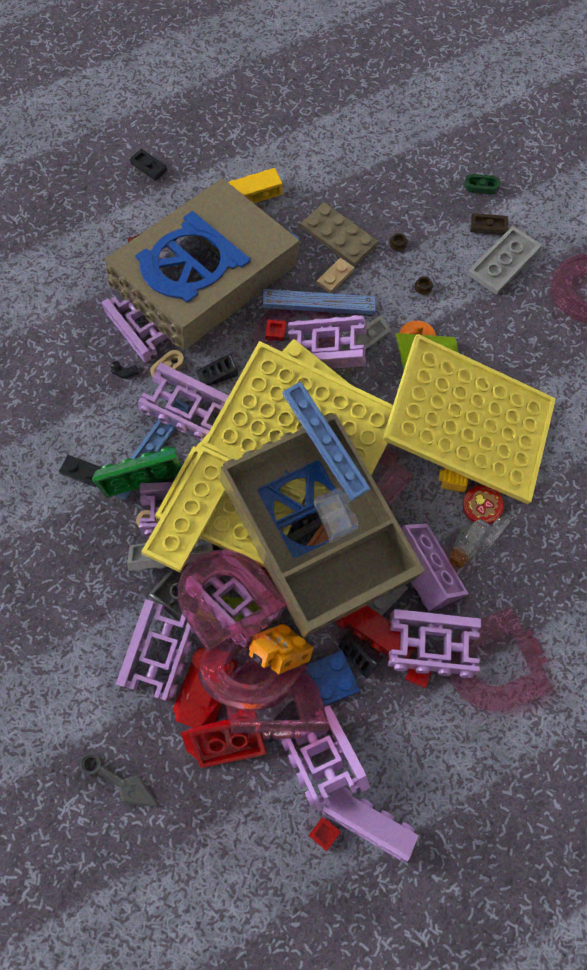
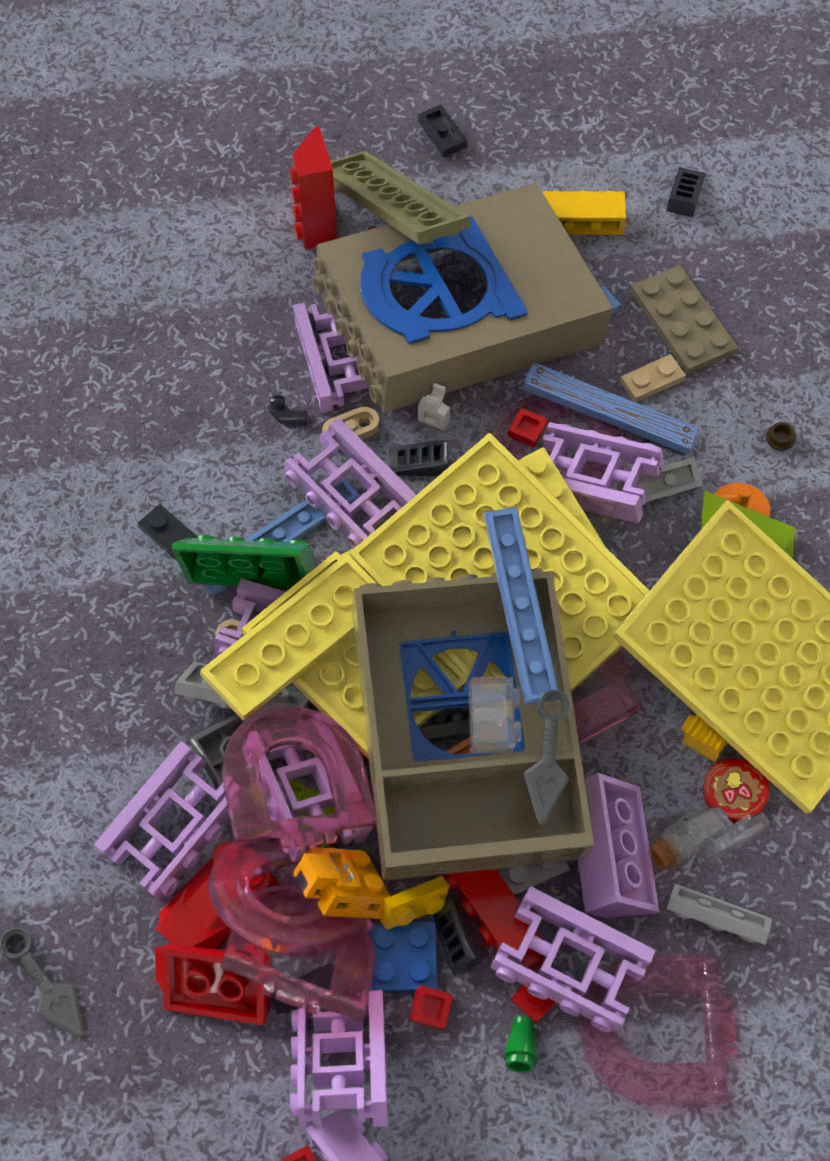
camera: 20 degrees right, 5 degrees down
(88, 226) = (313, 192): none -> red slope
(139, 214) = (397, 198): none -> olive plate
(213, 338) = (432, 409): none -> white plate
(309, 160) = (684, 205): none -> black slope
(324, 646) = (414, 903): none -> yellow plate
(361, 703) = (430, 1007): none -> red plate
(381, 541) = (546, 778): none -> dark grey piece
(398, 242) = (769, 360): dark brown plate -> none
(423, 705) = (521, 1046): none -> green cone
(504, 582) = (719, 914): none -> light grey plate

